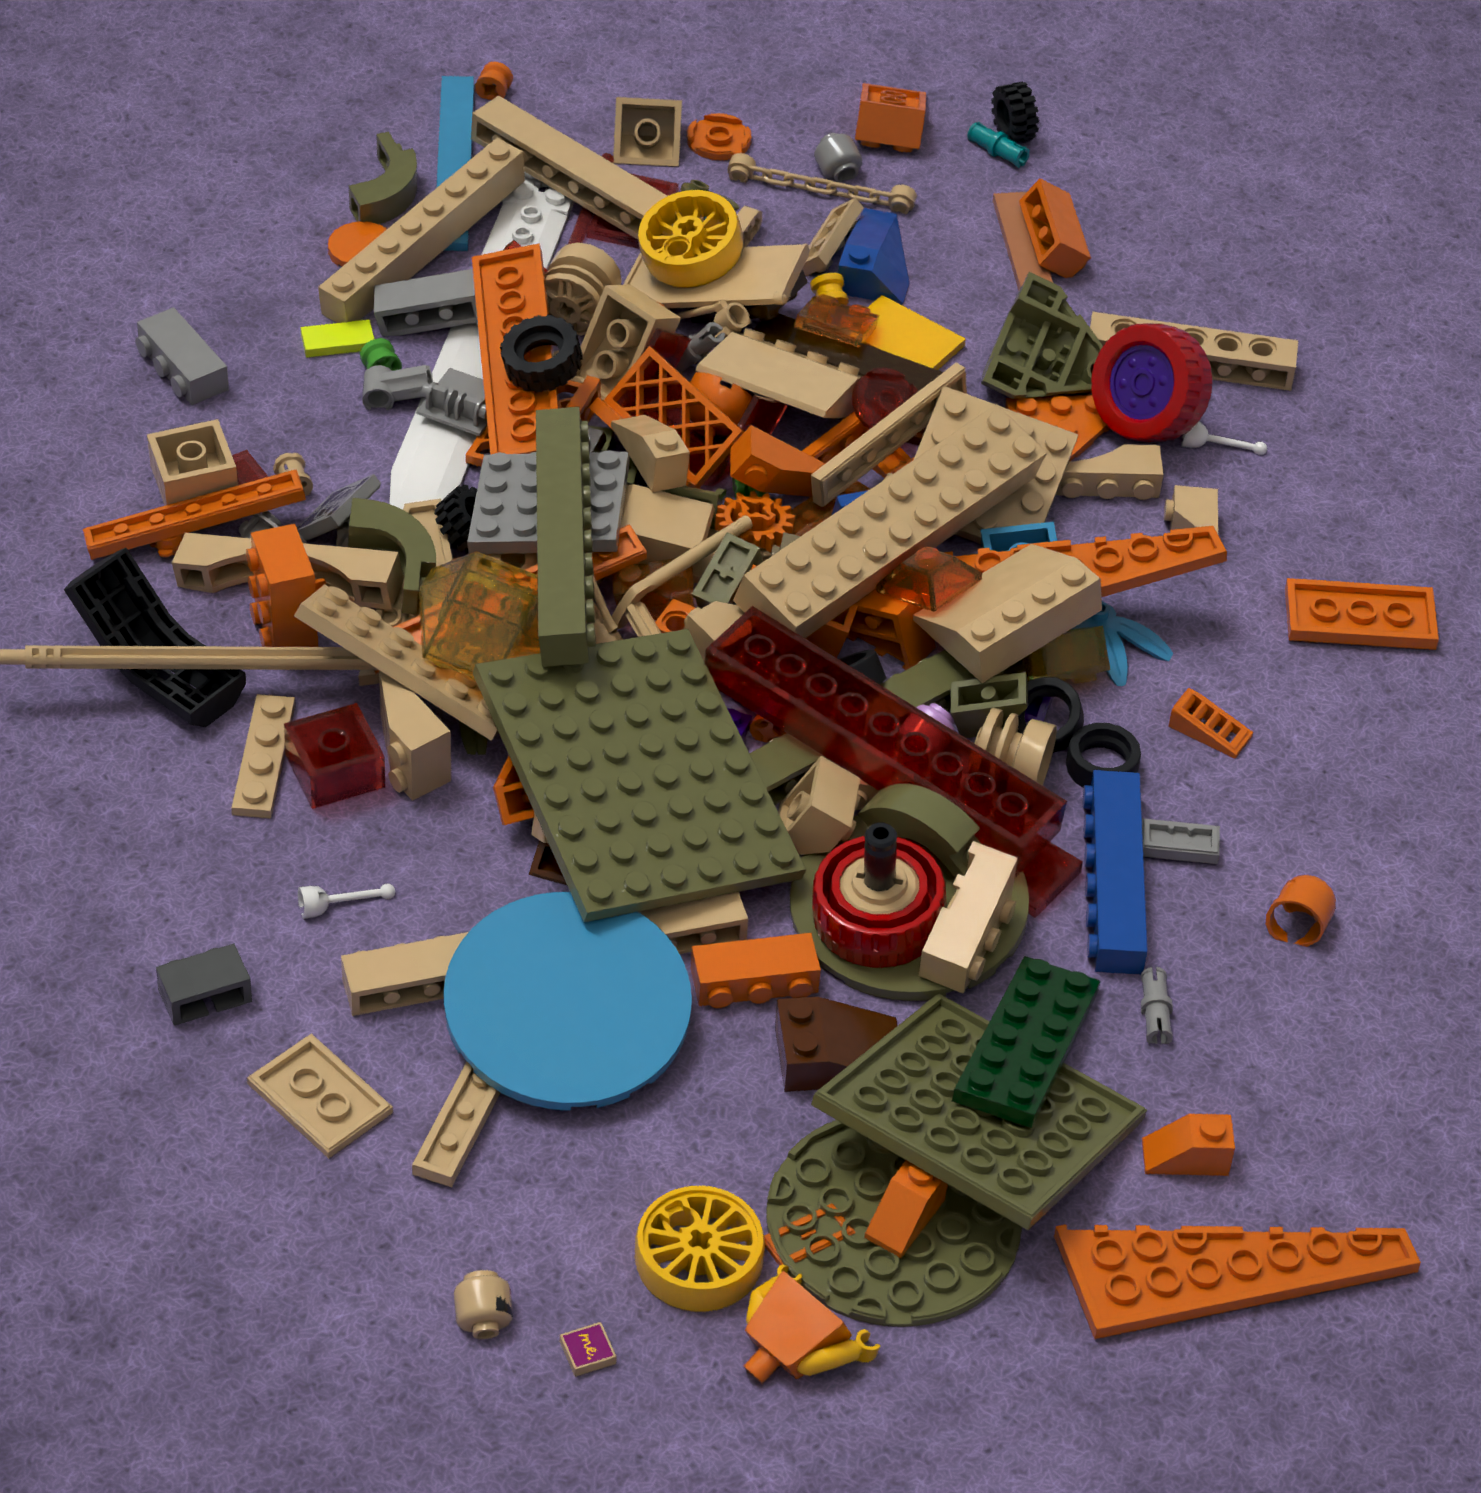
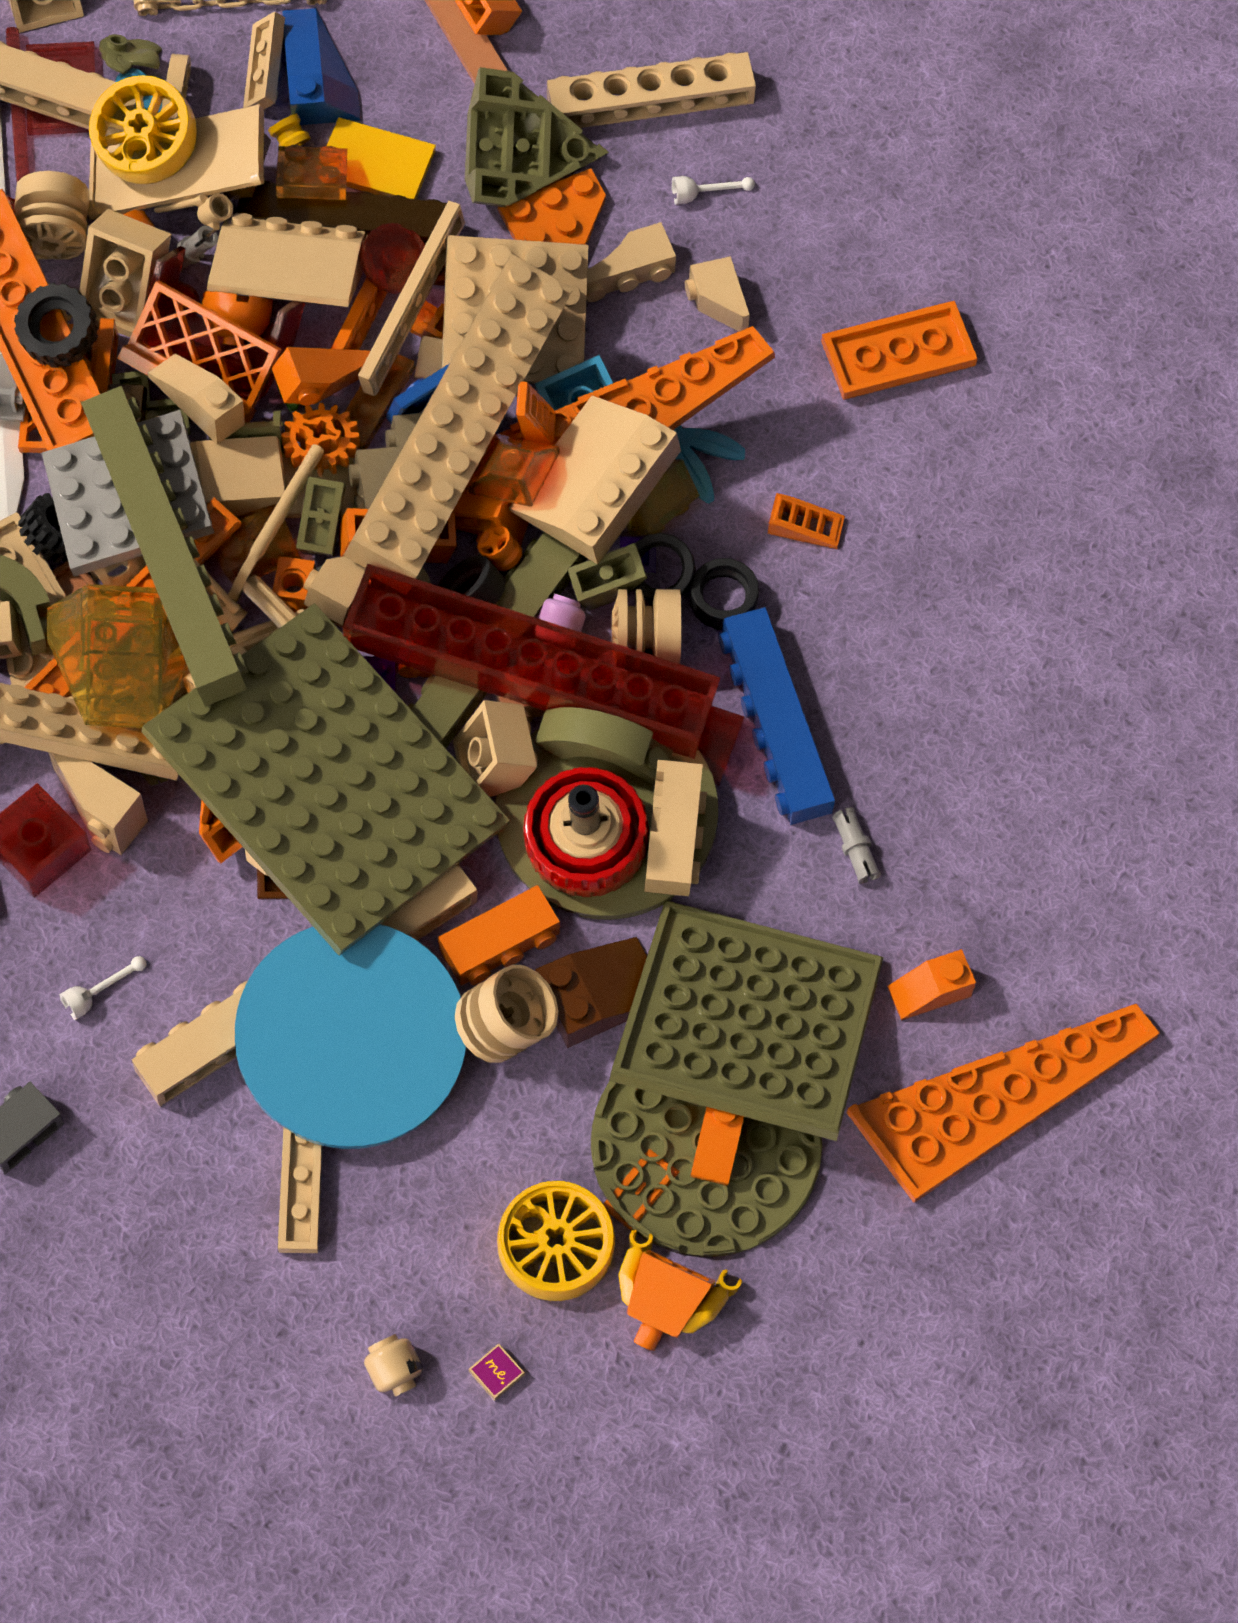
camera: 20 degrees left, 20 degrees up
(320, 1095) = (165, 1201): tan tile -> none
(731, 1025) = (506, 1014): none -> tan wheel
(892, 650) = (499, 547): none -> orange wheel
(966, 534) = (535, 415): none -> orange slope
(1026, 1041) = (763, 932): dark green plate -> none
(1151, 382) = (634, 158): red wheel -> none
(1180, 841) = (821, 660): light grey plate -> none
(1306, 895) = (952, 690): orange helmet -> none

